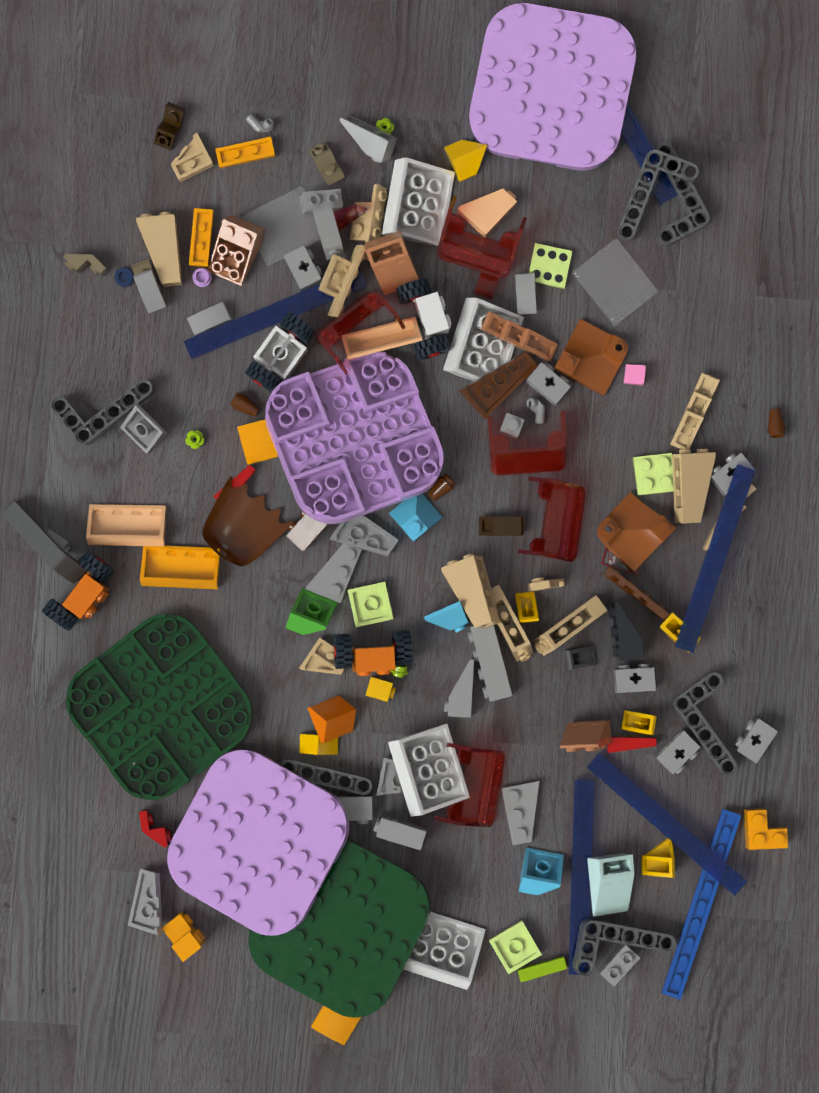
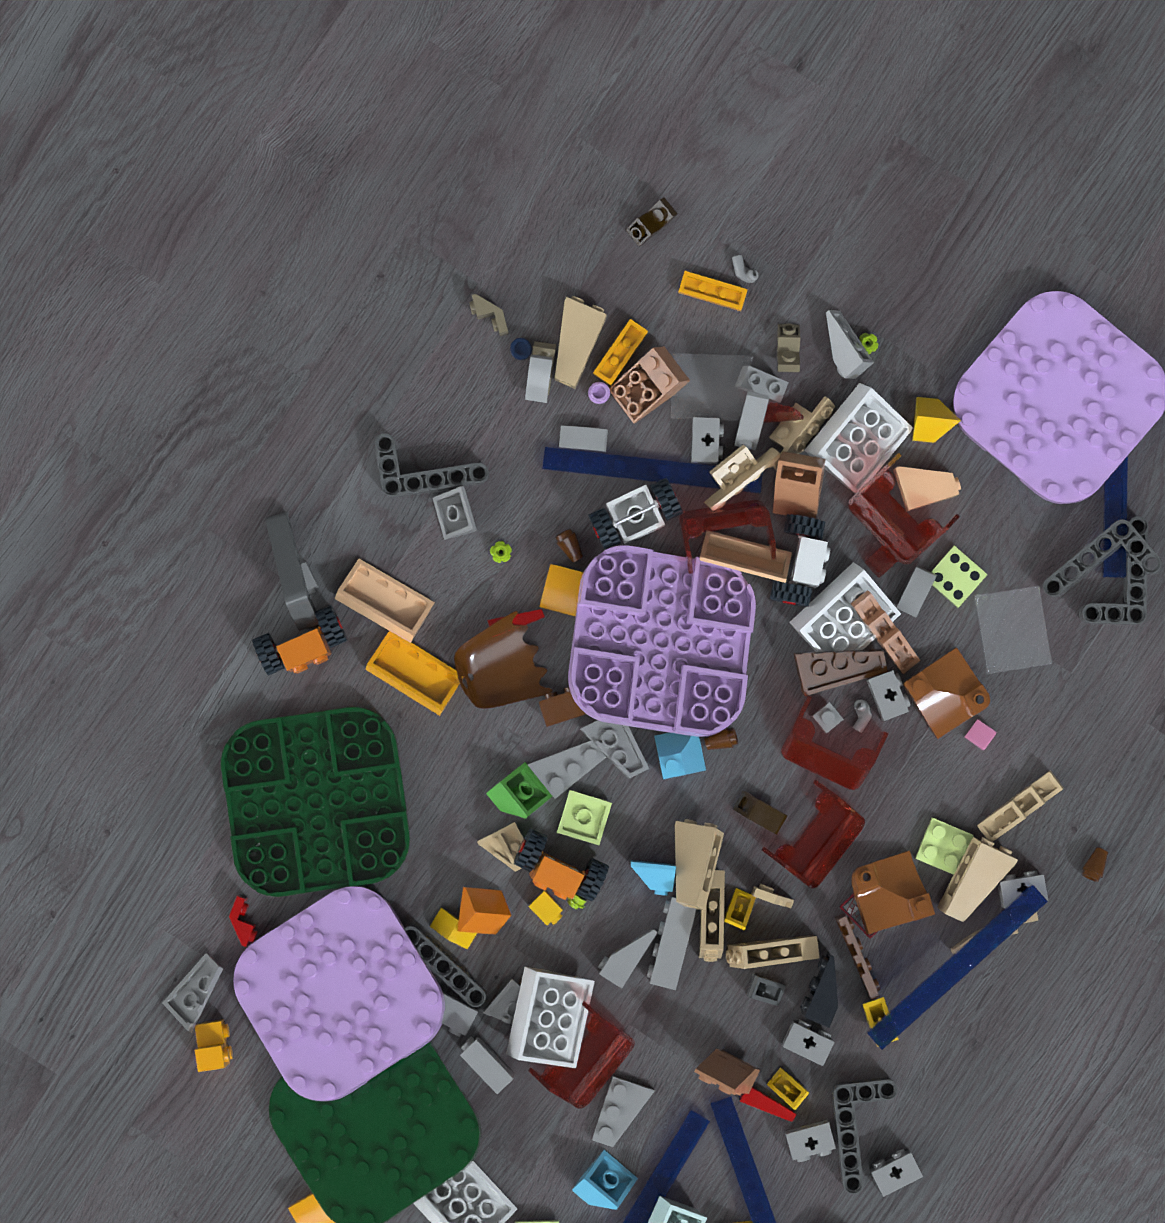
camera: 30 degrees right, 0 degrees up
(191, 160) = (655, 268): tan wing -> none

